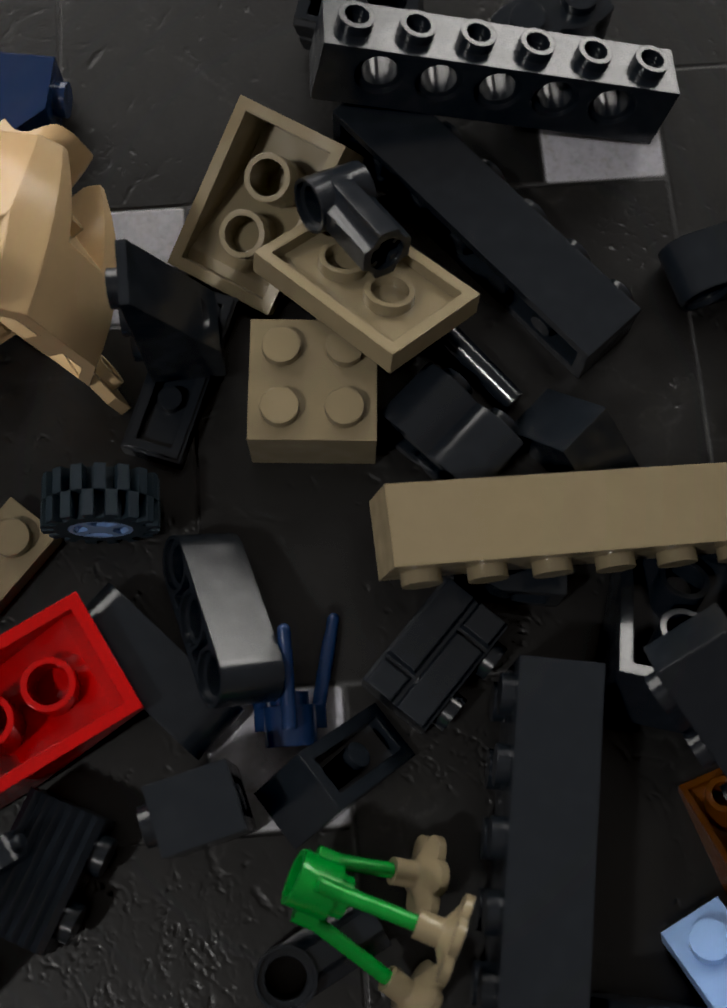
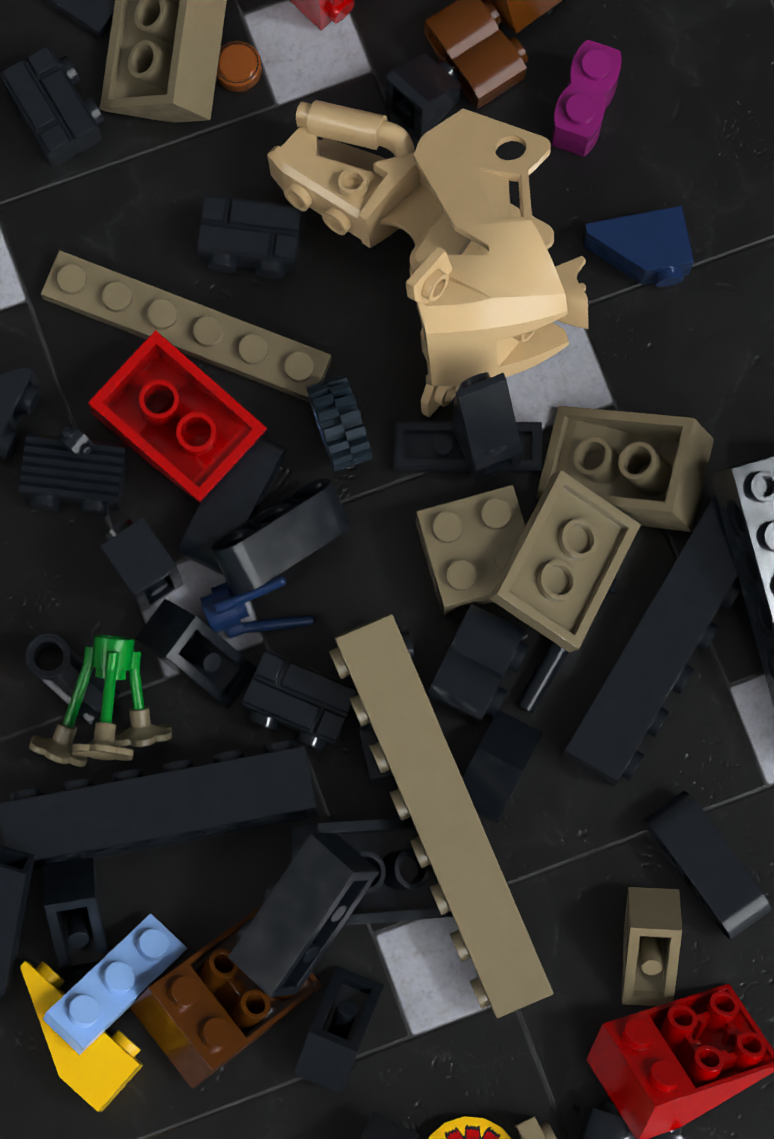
camera: 75 degrees right, 5 degrees up
(347, 207) = (619, 526): black piece -> none

